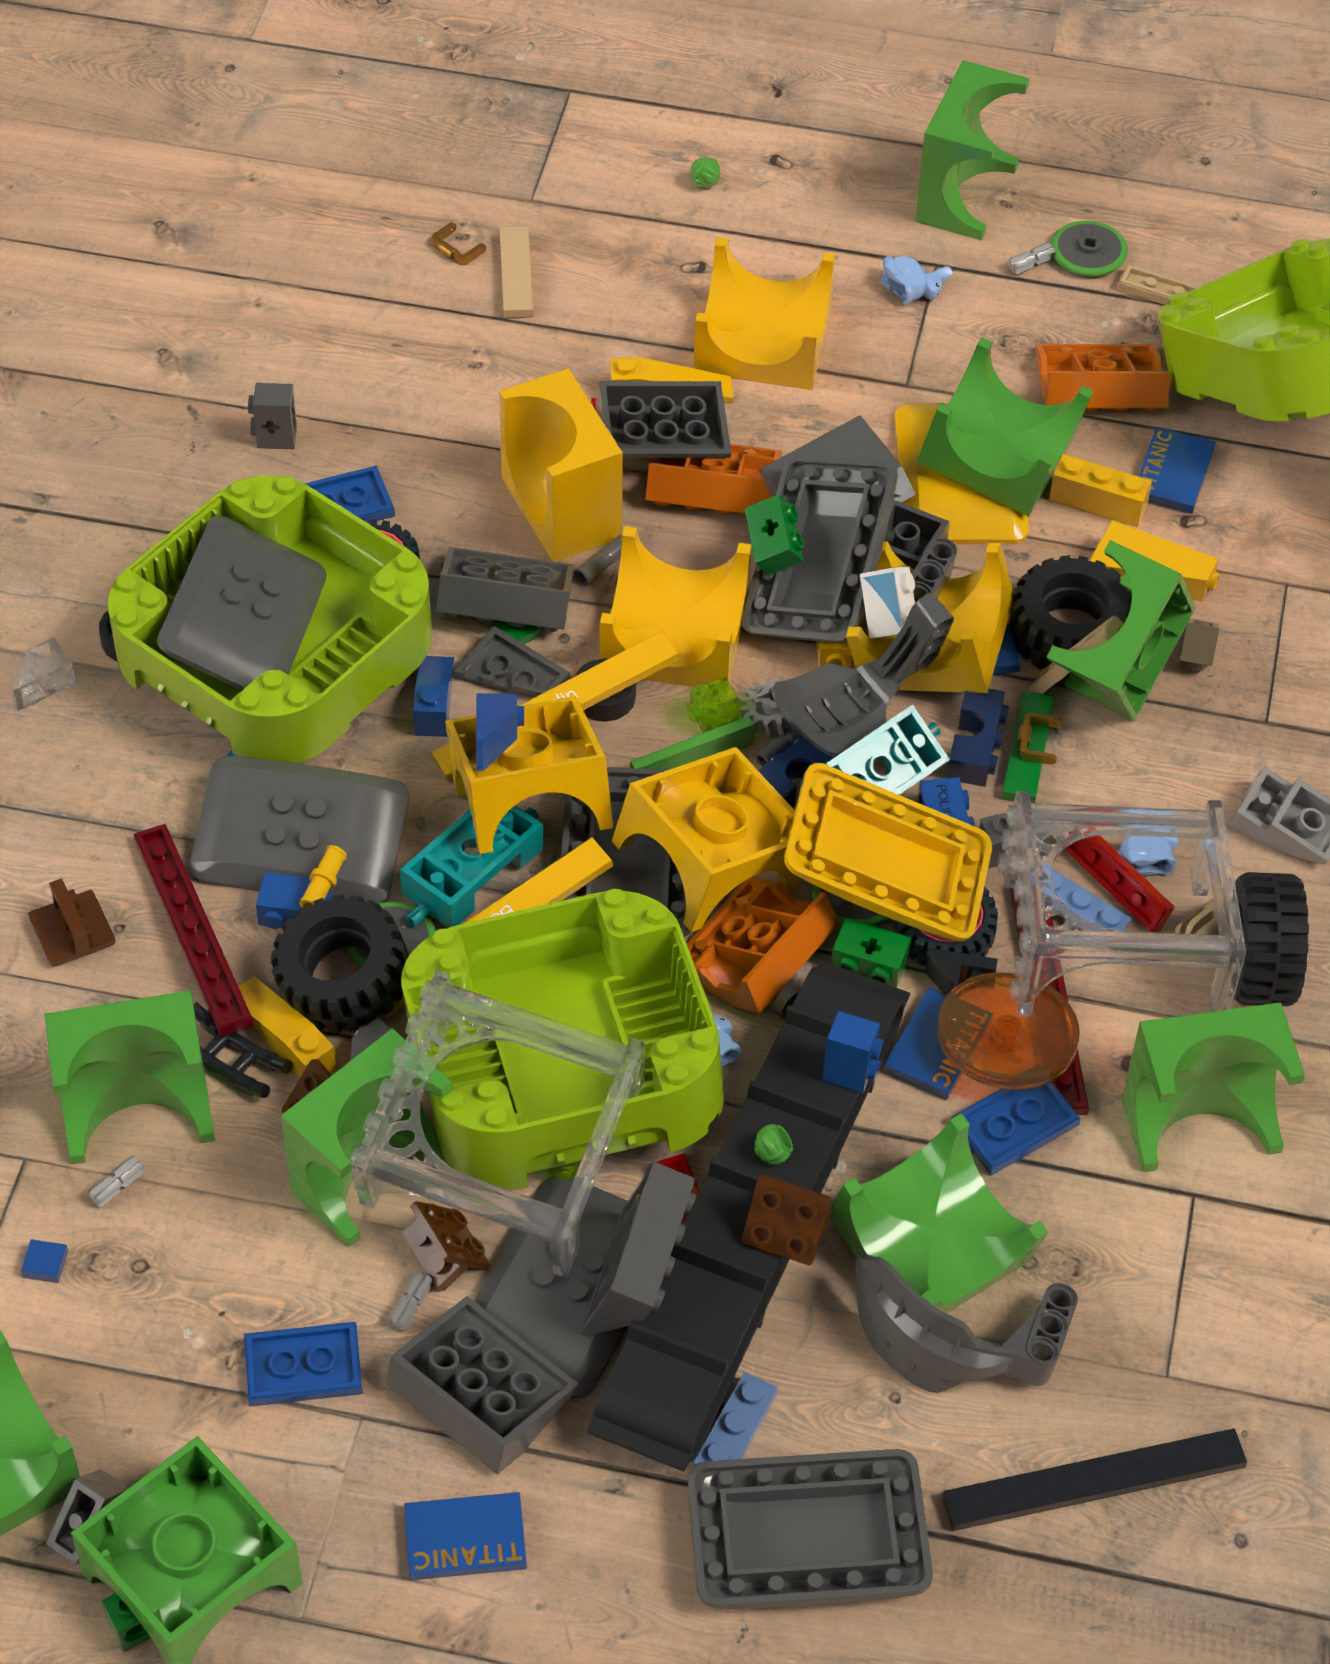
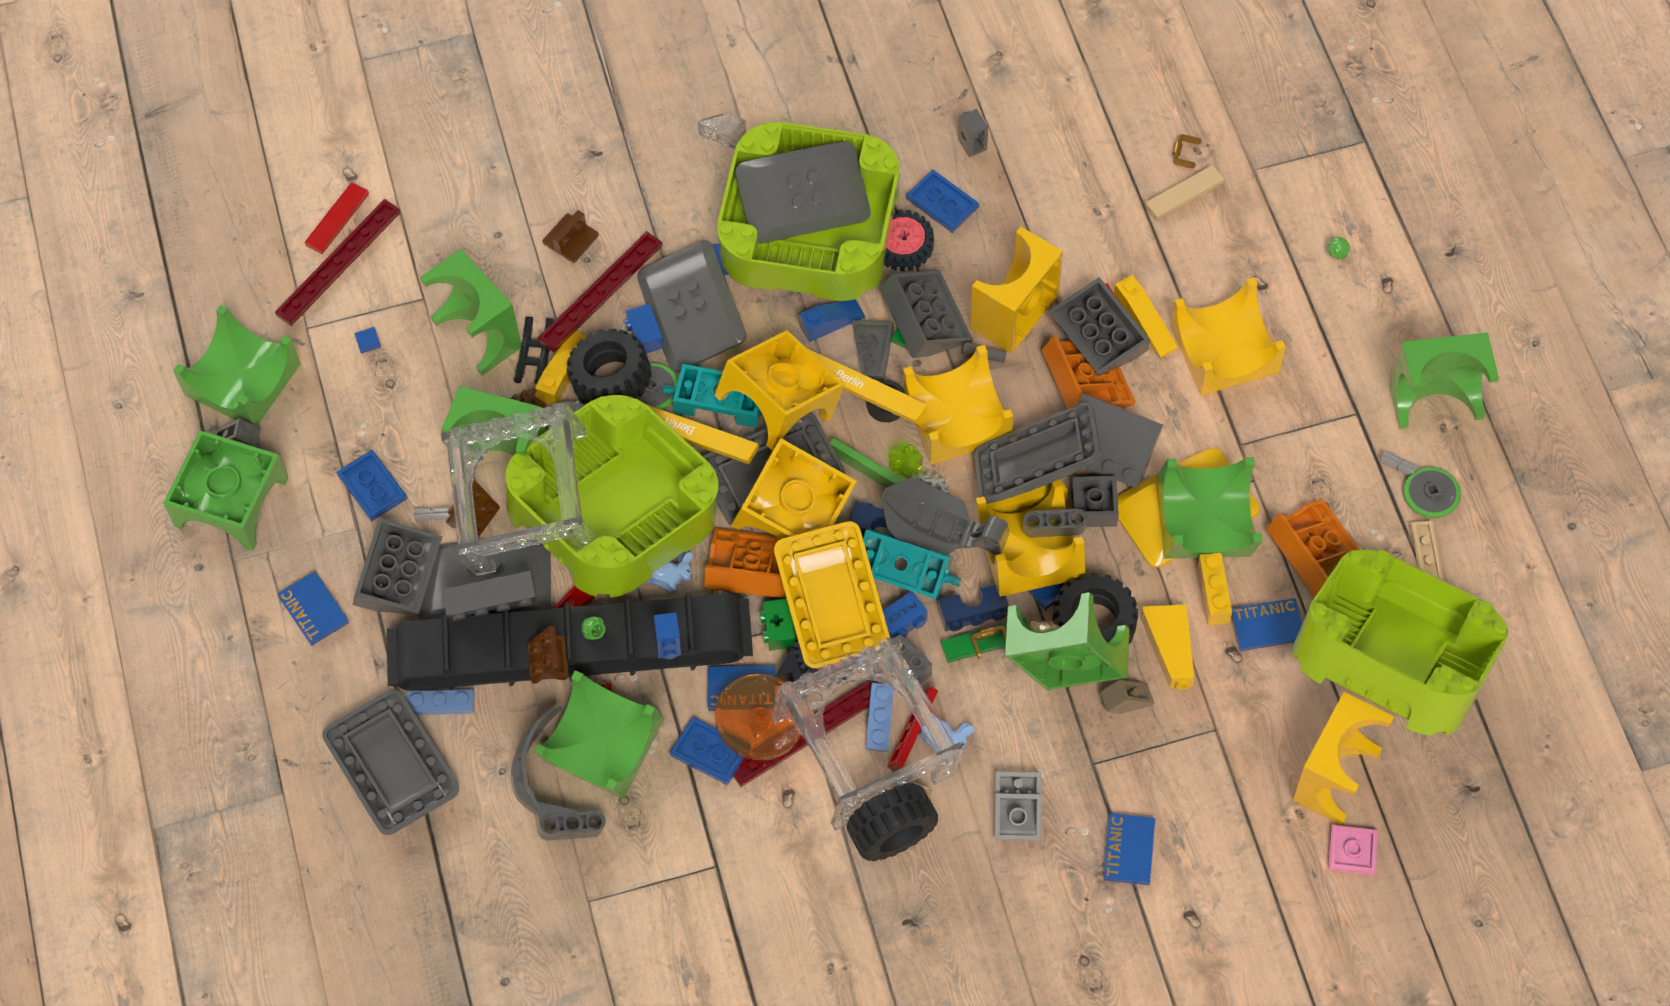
camera: 65 degrees right, 10 degrees up
(109, 1186) = (434, 345): light grey piece -> none
(324, 876) = (656, 331): yellow pin -> none
(495, 725) = (781, 353): blue slope -> none
(774, 534) = (1030, 424): green brick -> none
(887, 600) = (1015, 506): white brick -> none
(910, 280) = (1326, 405): light blue animal -> none
(1094, 1479) = (502, 892): black tile -> none
(1209, 1066) = (768, 815): bright green piece -> none

